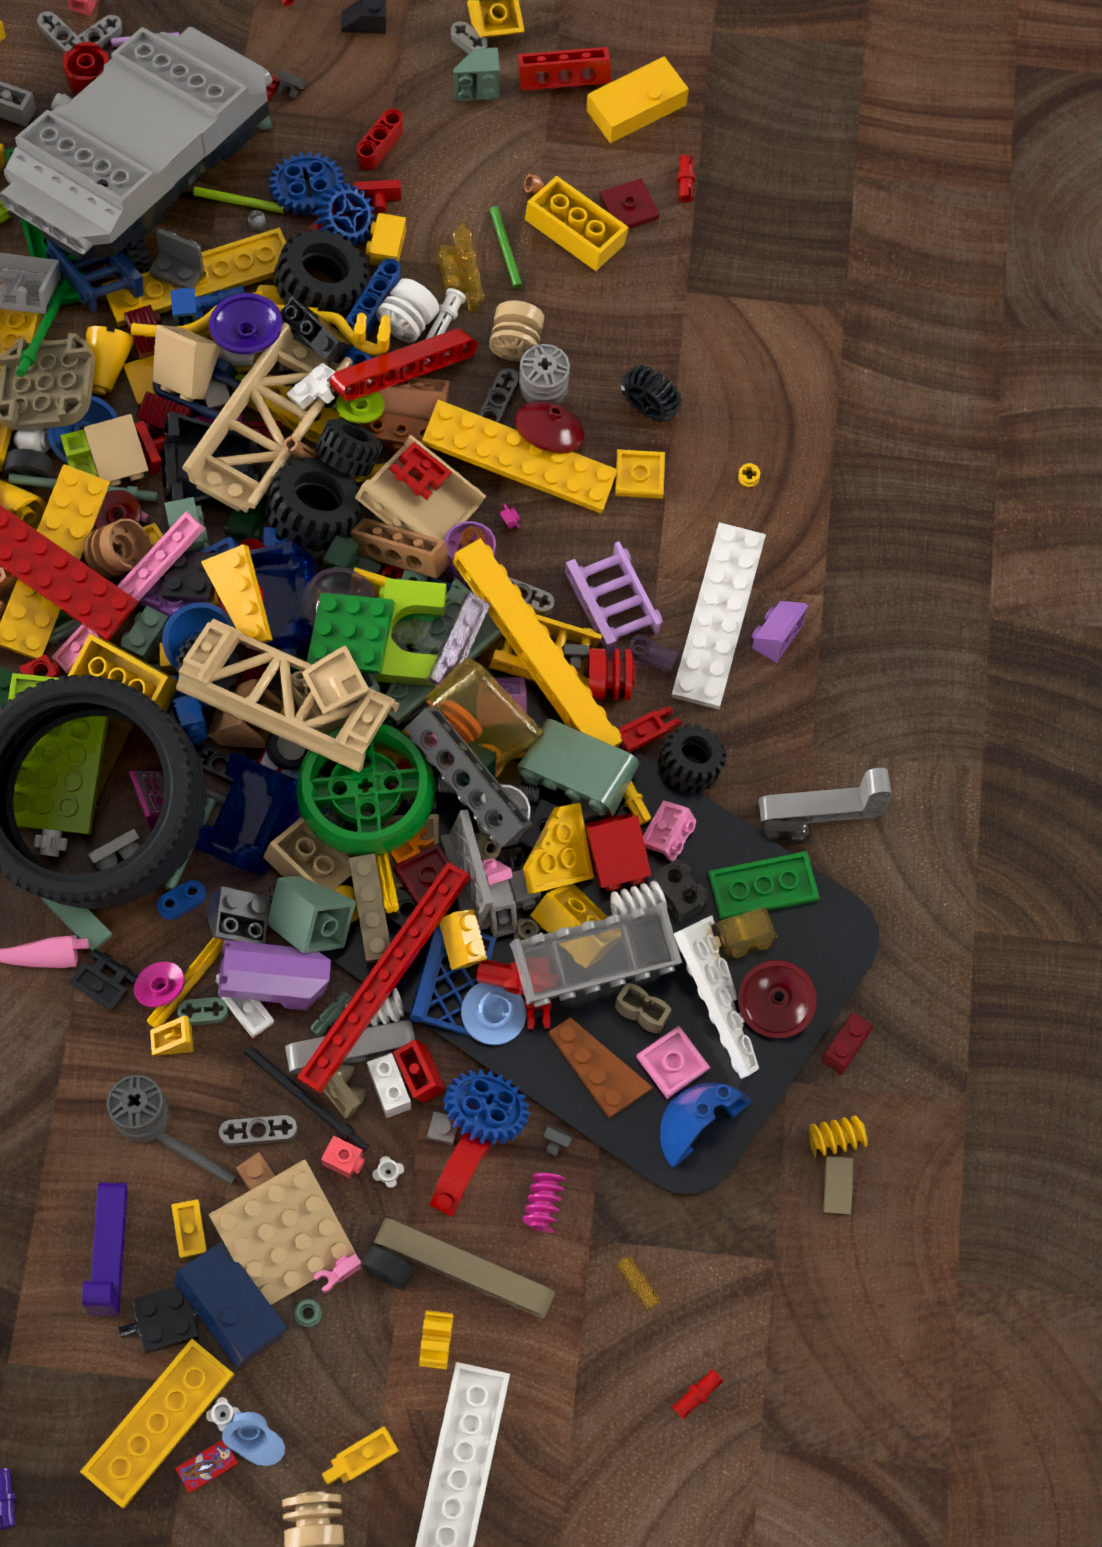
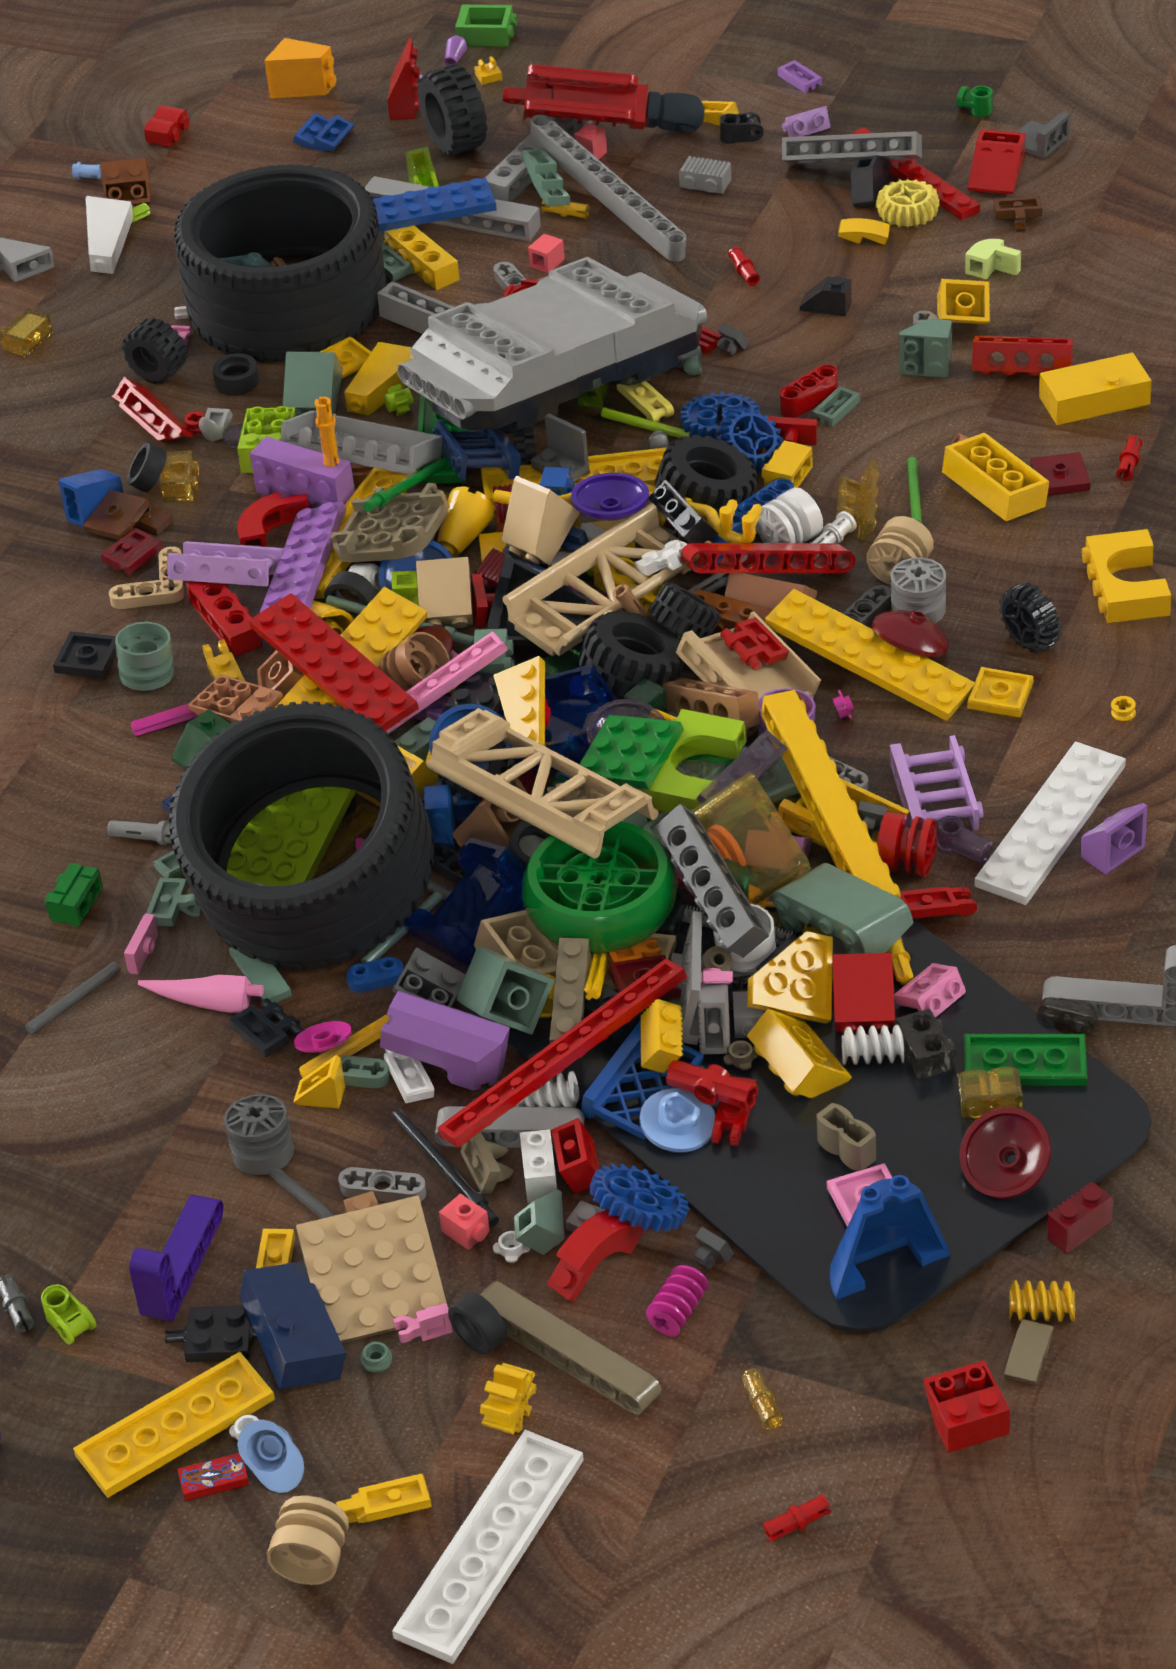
camera: 25 degrees right, 25 degrees down
(31, 1336) = (66, 1313): none -> lime piece
(233, 171) = (646, 400): none -> light yellow plate
(335, 681) = (593, 768): tan plate -> none
(361, 409) = (709, 584): lime dish -> none
(402, 165) = (839, 408): none -> sand green tile
(408, 1144) = (541, 1223): none -> sand green slope
(596, 955) = (803, 1066): clear window -> none
(602, 1072) = (781, 1193): dark orange wing -> none
(699, 744) = (976, 931): black tyre -> none
(715, 350) = (1120, 598): none -> yellow arch
(717, 990) = (938, 1132): white wing -> none
(805, 1254) = (967, 1406): none -> red slope

